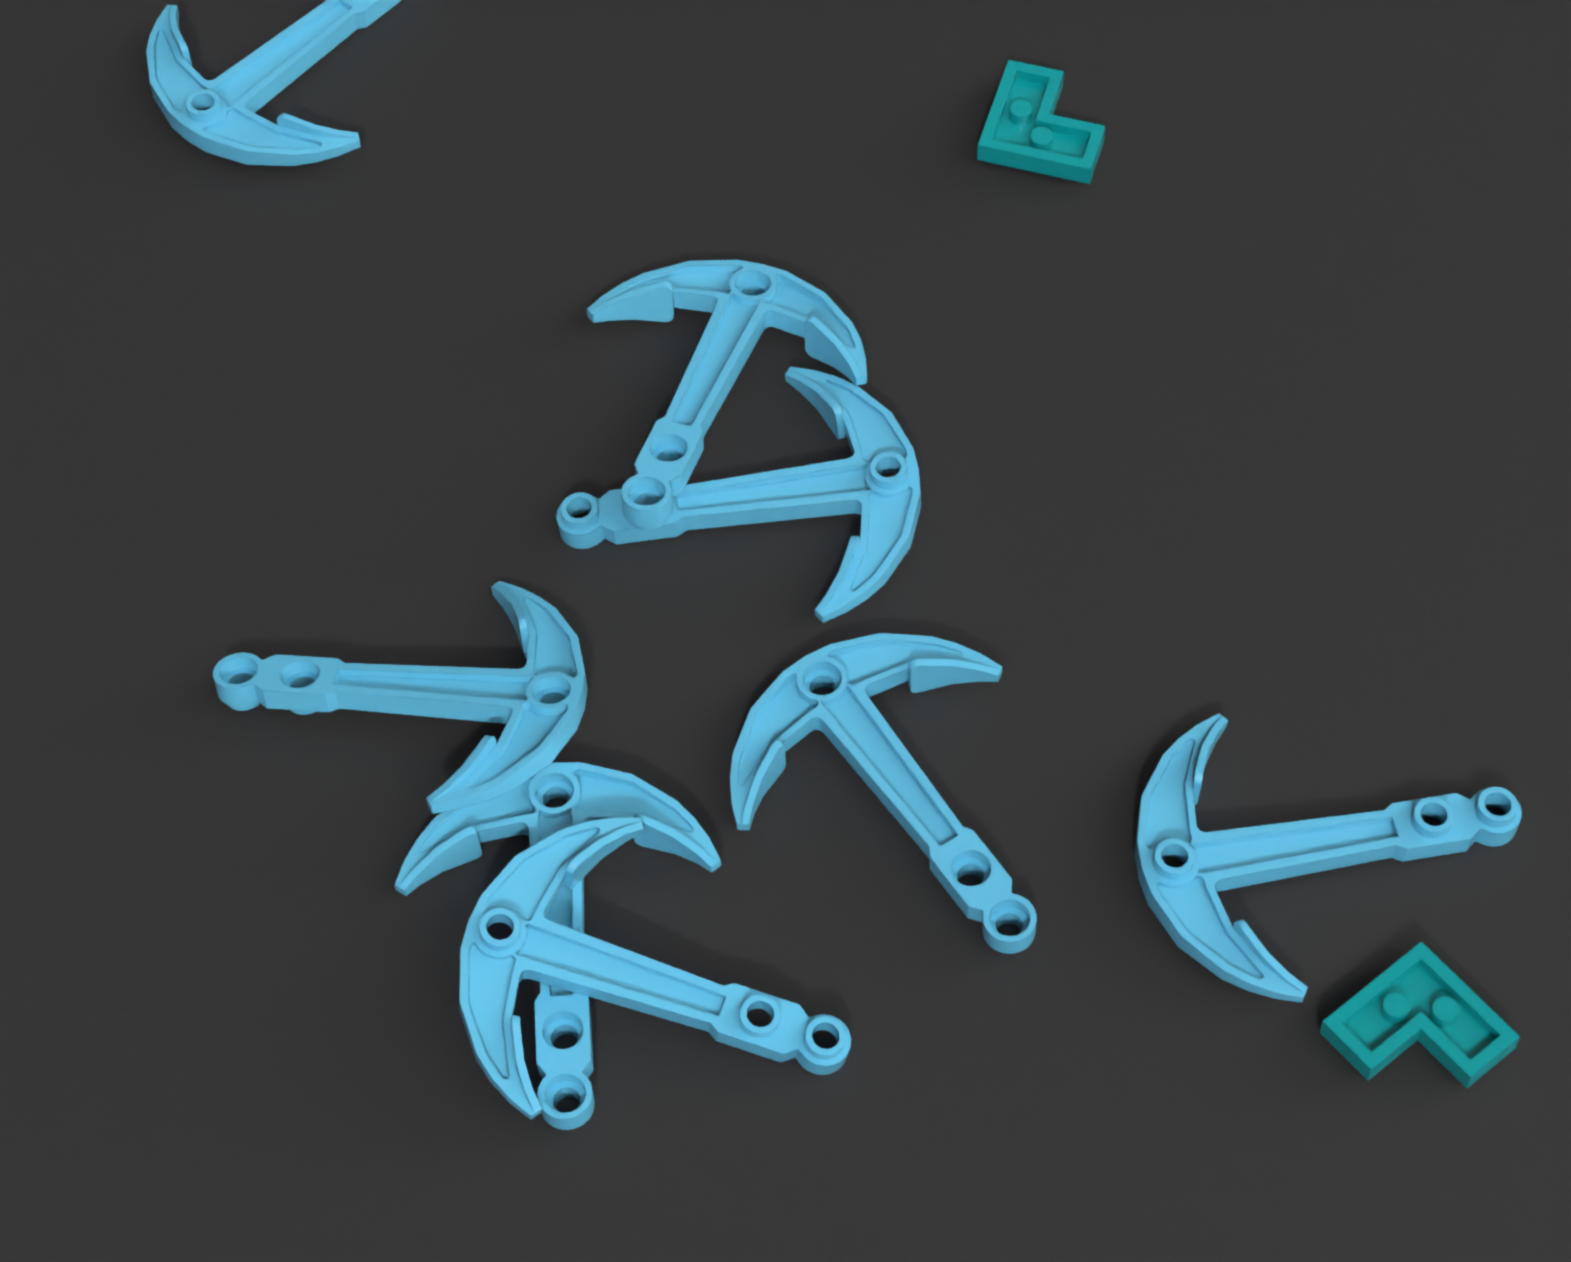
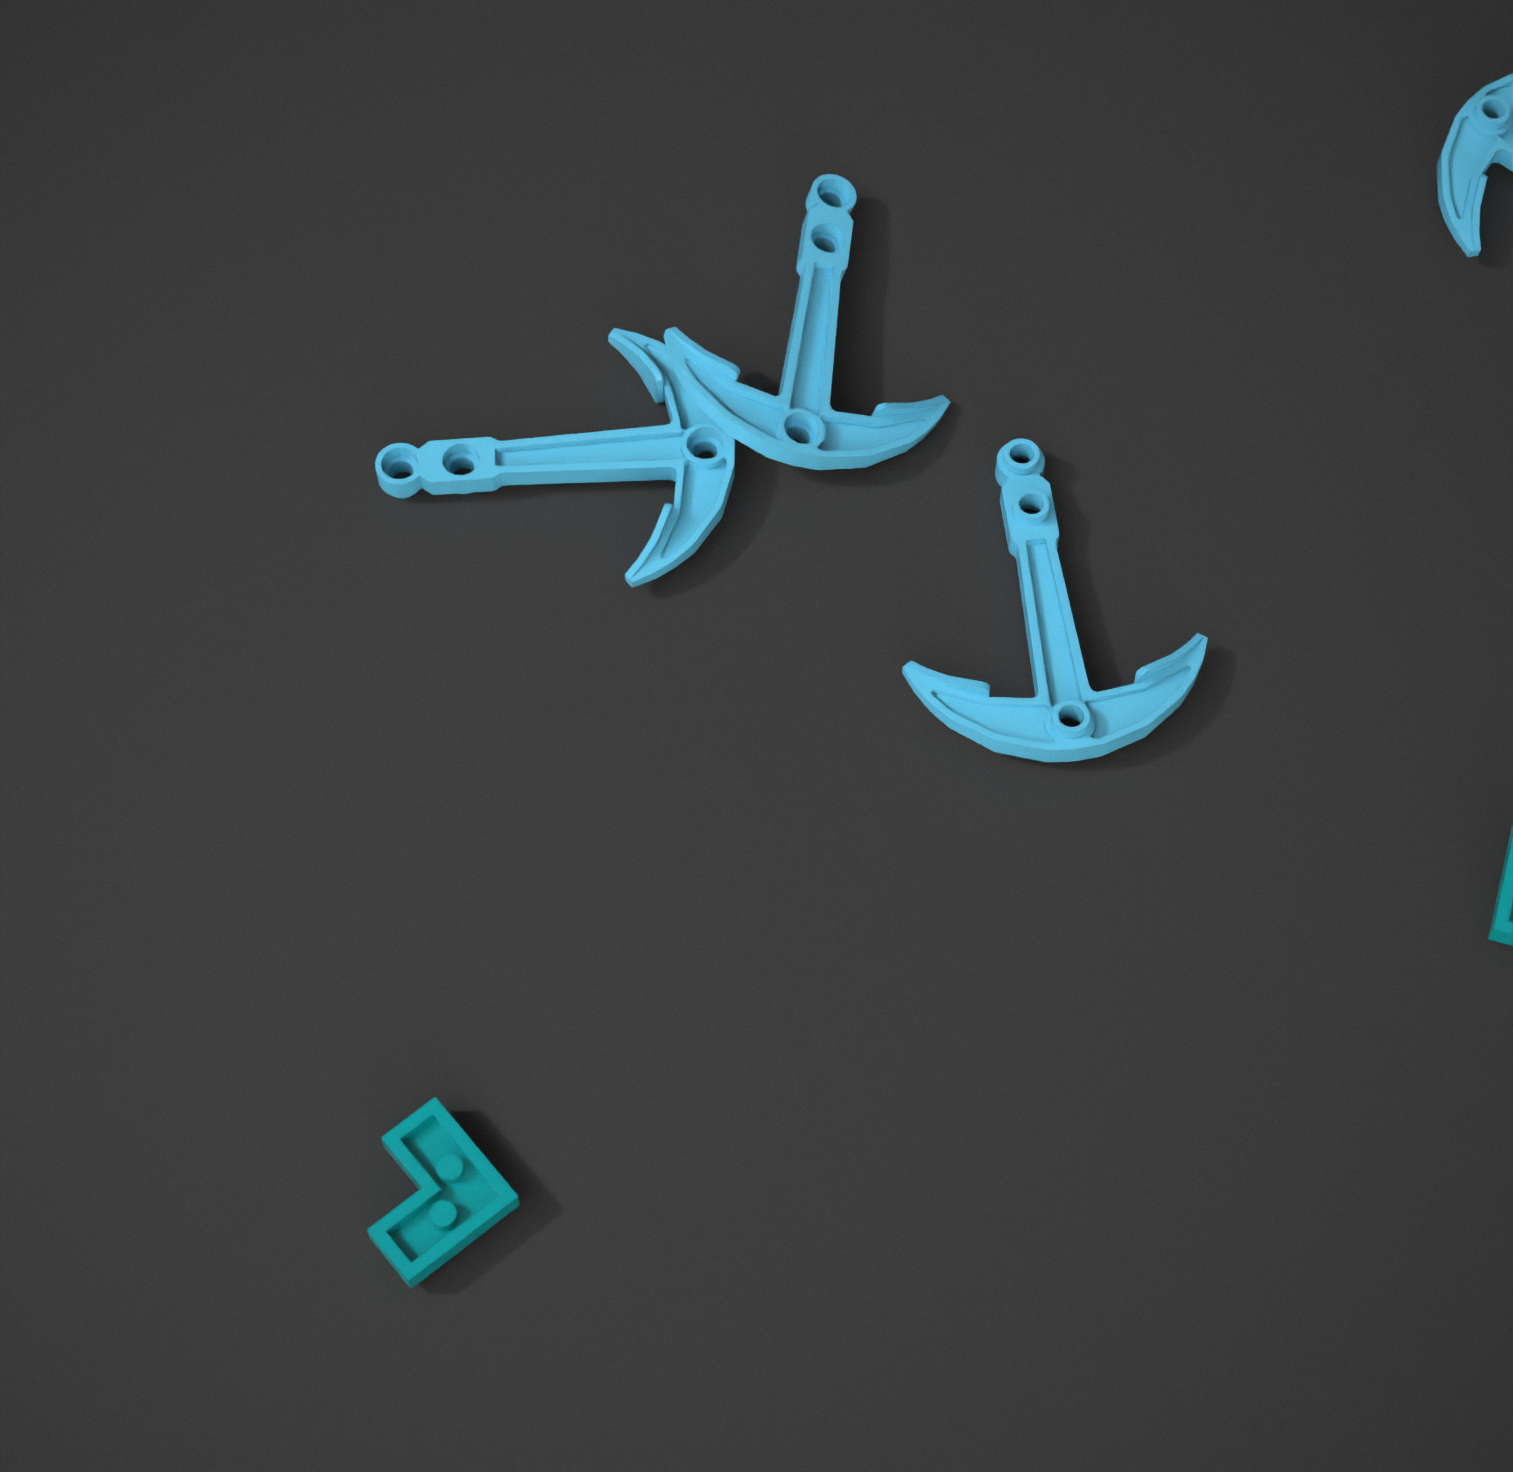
camera: 85 degrees right, 5 degrees up
(602, 971) = (521, 450): medium azure piece -> none
(743, 304) = (1304, 578): medium azure piece -> none
(867, 742) = (769, 702): medium azure piece -> none
(1240, 857) = (619, 1005): medium azure piece -> none

